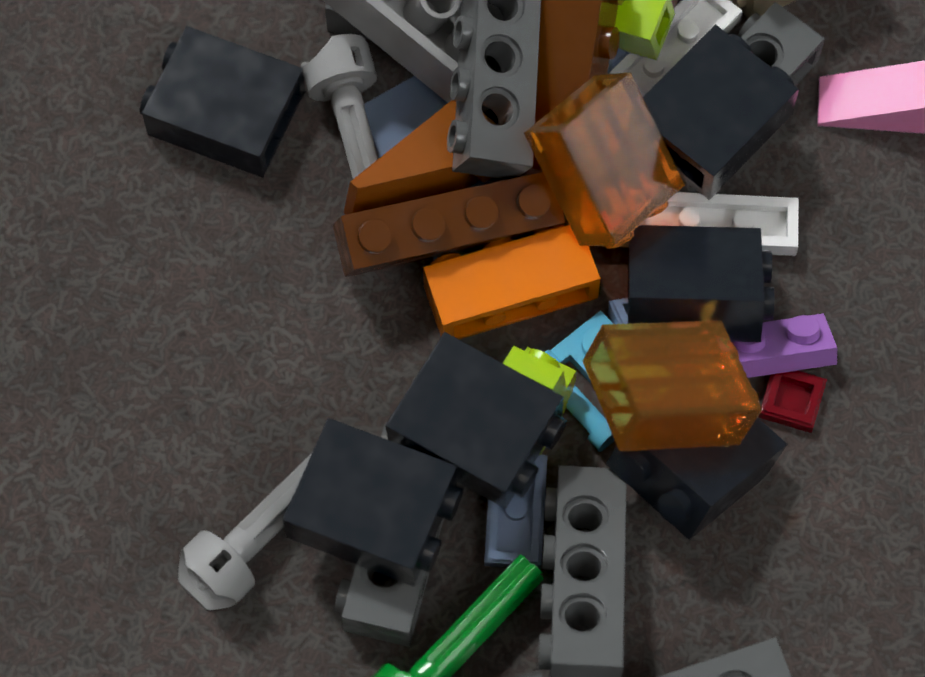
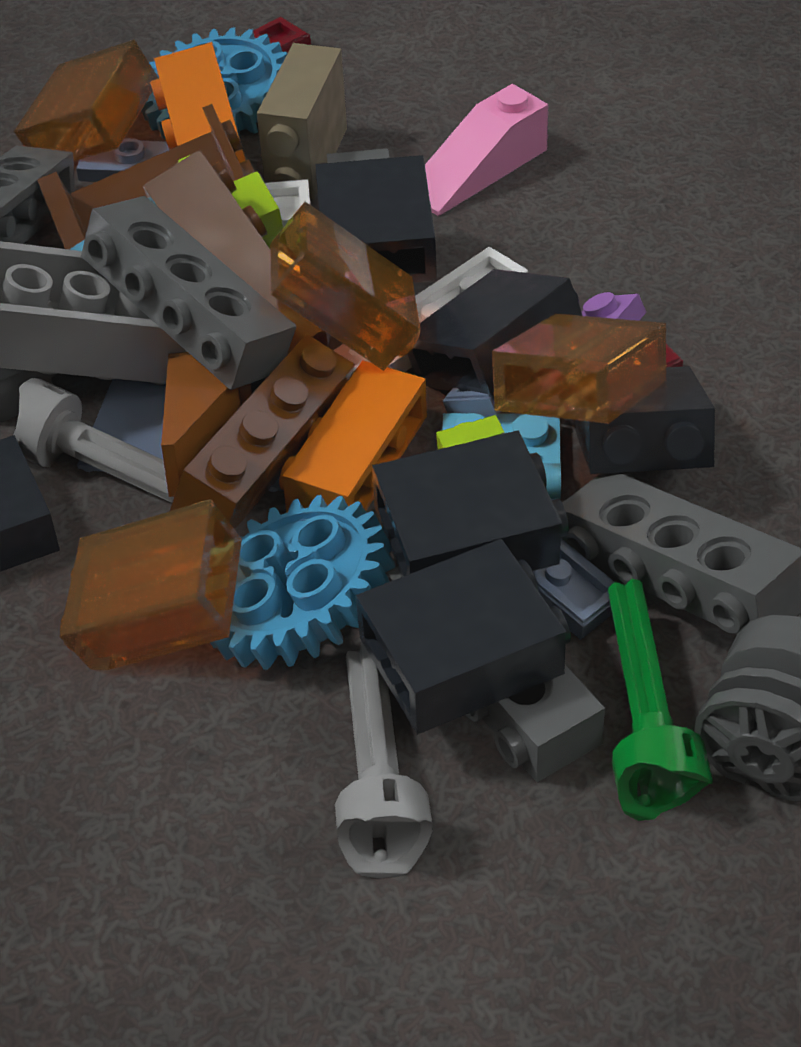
camera: 45 degrees left, 20 degrees down
(261, 274) = (152, 587): none -> clear orange brick
(347, 351) = (303, 601): none -> dark azure gear

